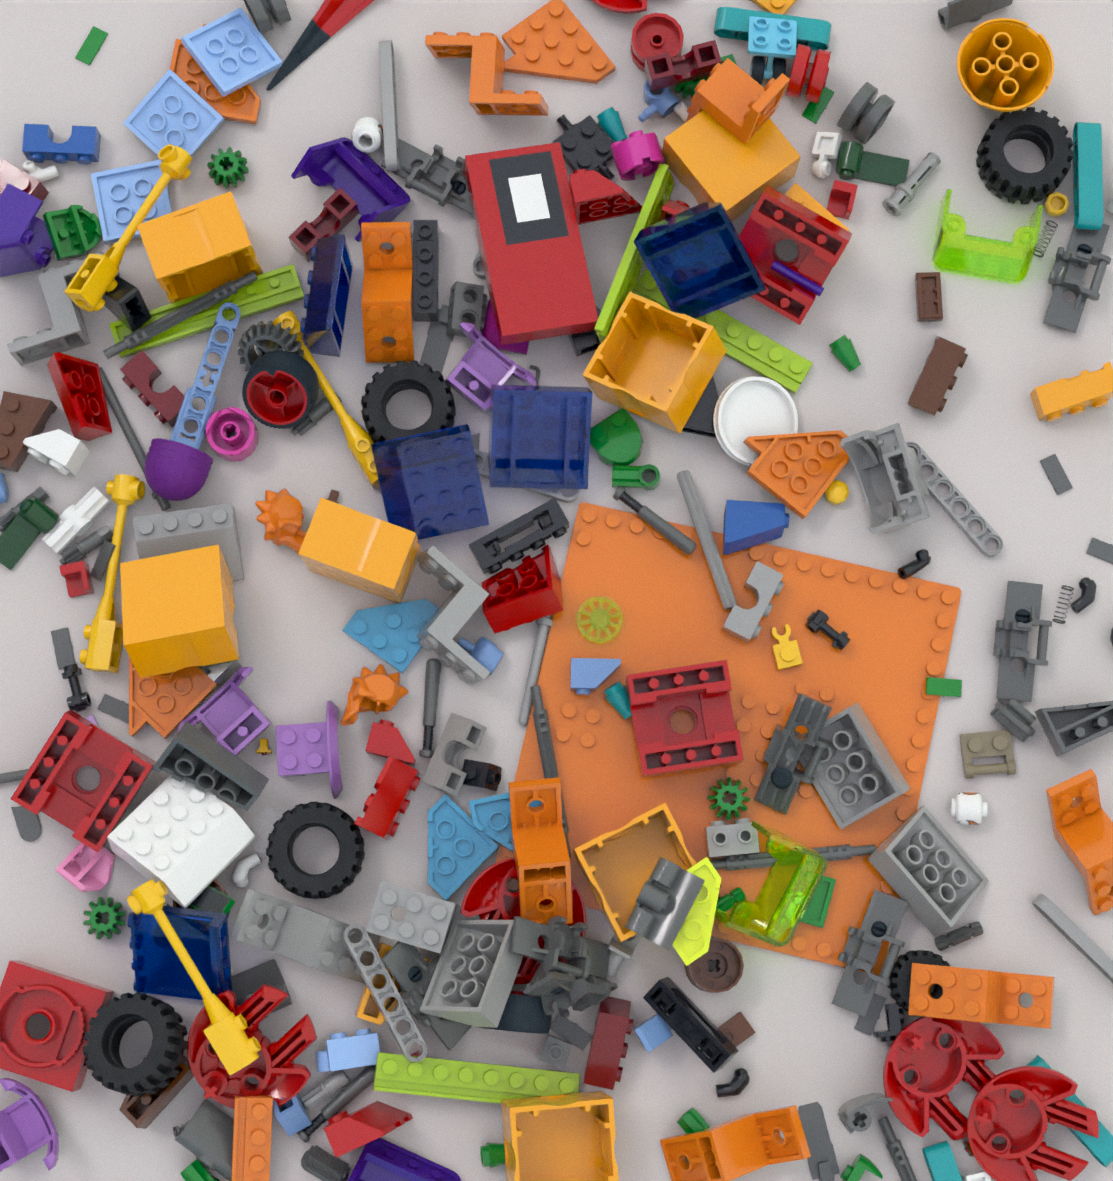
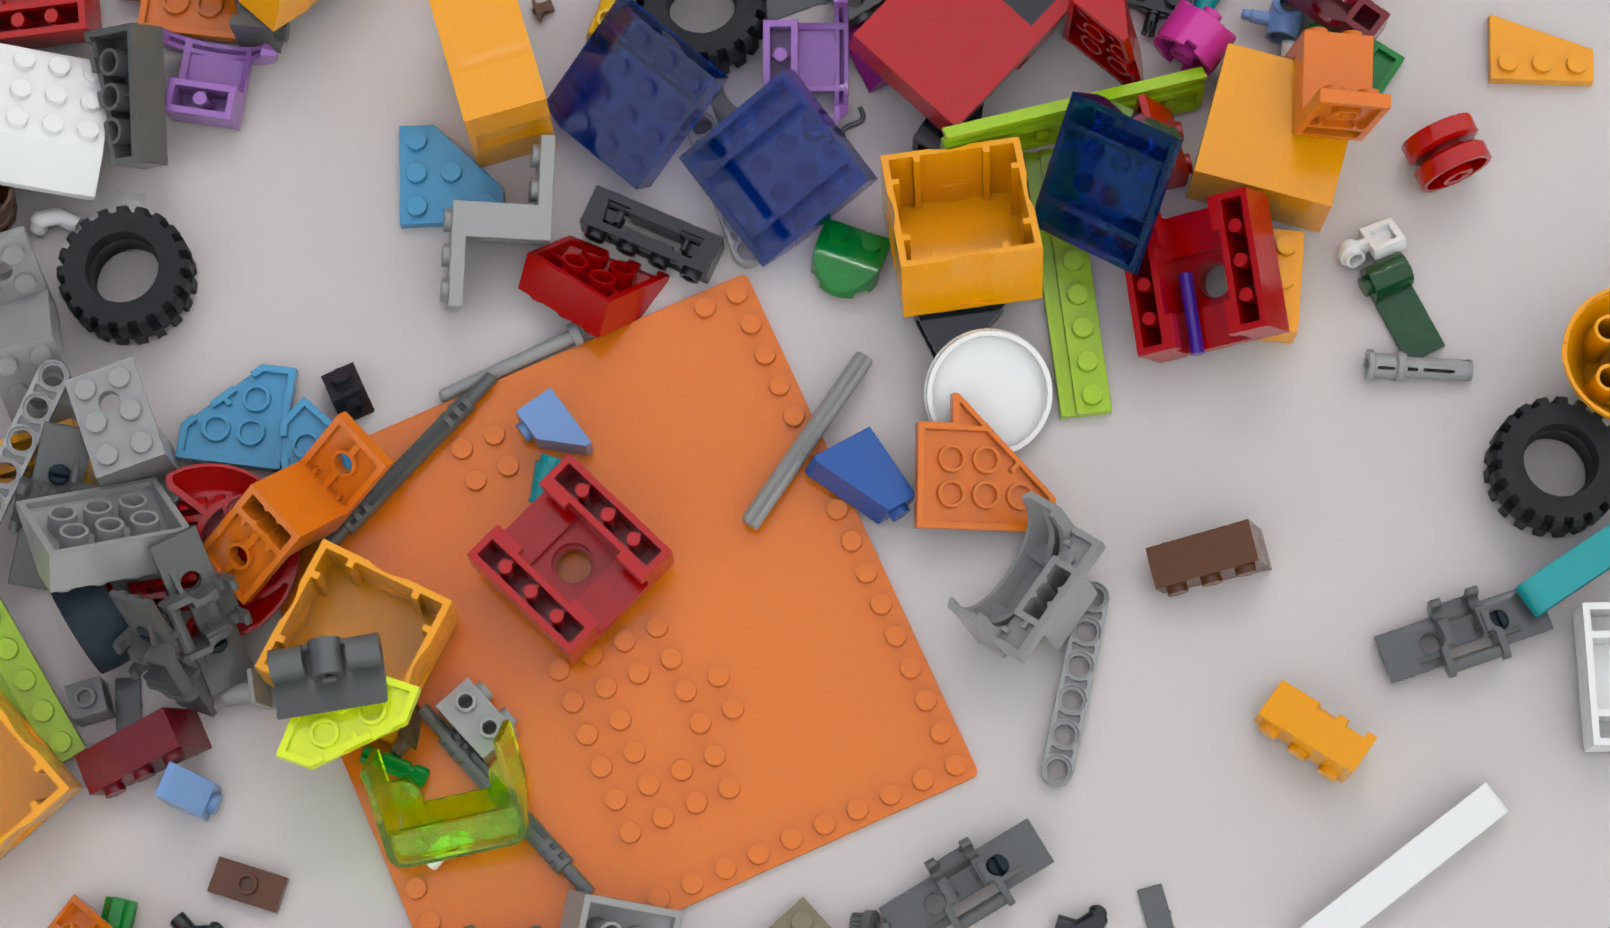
camera: 55 degrees right, 5 degrees down
(263, 749) = (206, 141): yellow piece -> none
(311, 749) = (237, 188): medium lavender piece -> none
(372, 692) = (350, 206): orange head -> none
(387, 741) = (309, 267): red slope -> none
(390, 799) = (241, 308): red wedge -> none
(432, 682) = (391, 278): dark grey piece -> none
(443, 768) = (323, 345): light grey arch -> none
(484, 652) = (485, 296): medium blue piece -> none
(599, 619) = (624, 391): clear neon green wheel -> none
(632, 476) = (819, 309): green piece -> none
(668, 531) = (784, 371): dark grey piece -> none
(690, 1024) = (227, 826): black brick -> none
(726, 807) = (535, 676): green gear -> none
(728, 967) = (301, 788): reddish brown wheel -> none
(734, 24) = (1471, 79): teal beam -> none
(744, 622) = (744, 553): light grey arch -> none
(771, 39) = (1446, 78): medium azure plate -> none
(785, 652) = (746, 625): yellow plate -> none
(785, 750) = (623, 701): dark grey piece -> none
(815, 110) = (1414, 198): green window -> none
(817, 622) = (807, 635): black bar -> none
(818, 907) = (480, 872): green tile -> none
(836, 492) = (980, 548): yellow tile -> none
(841, 199) = (1333, 302): red panel -> none
(845, 353) = (1153, 437): green cone -> none
(855, 768) = (665, 791): light grey slope -> none
(866, 113) = (1453, 250): dark grey wheel -> none
(923, 559) = (962, 700): black arm -> none
(928, 296) = (1297, 483): reddish brown plate -> none
(943, 687) = (843, 836): green window -> none
(983, 256) = (1394, 510): clear neon green windscreen -> none
(1053, 226) = (1454, 577): dark grey piece -> none
(1056, 204) = (1529, 549): yellow tile -> none
(1056, 474) = (1204, 786): dark grey window -> none
(1063, 587) = (1073, 894): dark grey piece -> none

